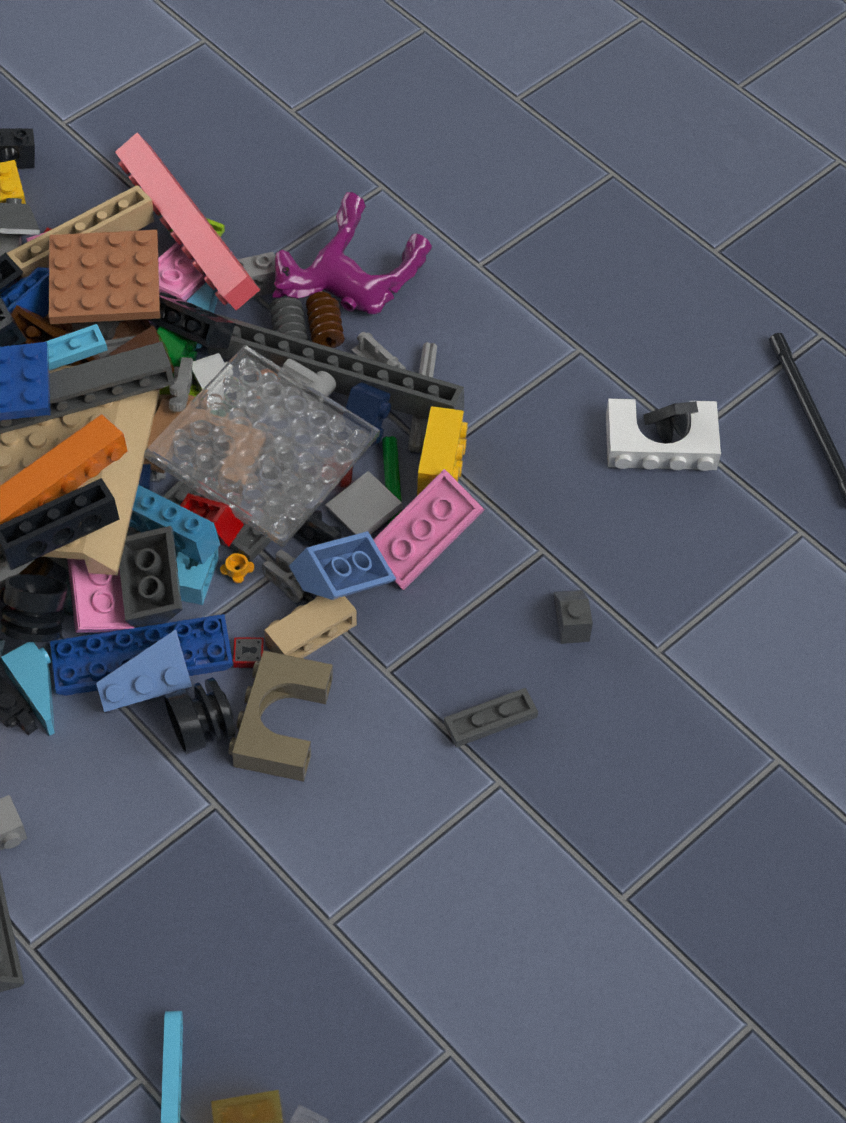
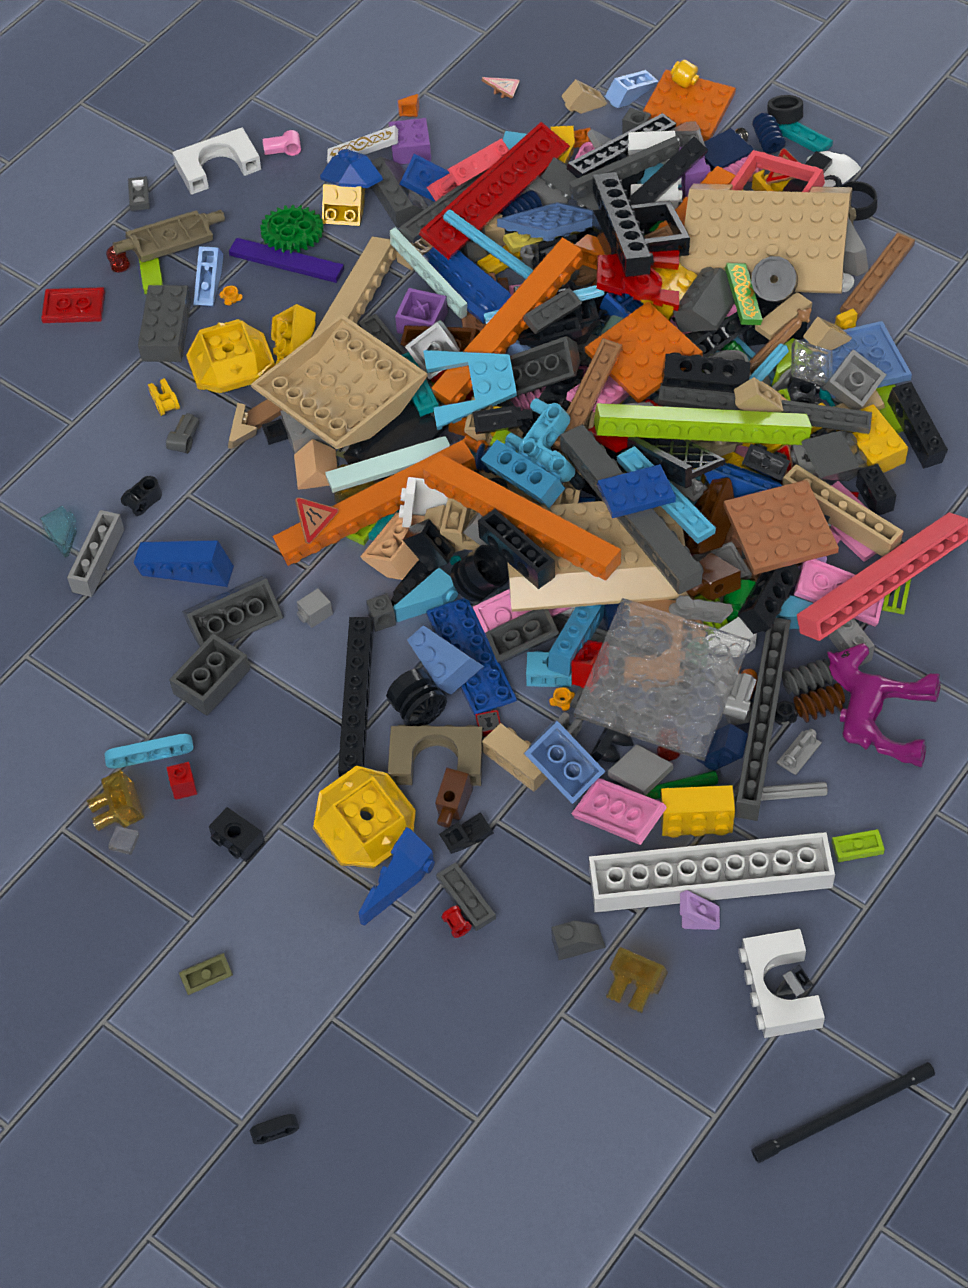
camera: 85 degrees right, 0 degrees up
(42, 741) = (381, 612): none -> dark grey brick
(54, 205) = (876, 490): none -> black brick
(74, 970) = (209, 674): none -> dark grey brick
(171, 792) = (356, 694): none -> black brick
(236, 1031) = (181, 780): none -> red brick
(347, 955) = (230, 824): none -> black brick
(354, 702) = (453, 796): none -> reddish brown torso
(359, 809) = (344, 831): none -> yellow piece
(401, 703) = (467, 834): none -> black slope
(439, 773) = (407, 868): none -> blue wedge
(510, 334) = (858, 845): none -> lime plate
(518, 469) = (711, 871): none -> white brick
(524, 732) = (456, 921): none -> red bush
(534, 1042) = (205, 973): none -> olive slope
(562, 494) = (698, 912): none -> lavender slope
(636, 551) = (635, 969): none -> clear yellow brick
(771, 980) = (274, 1129): none -> black beam

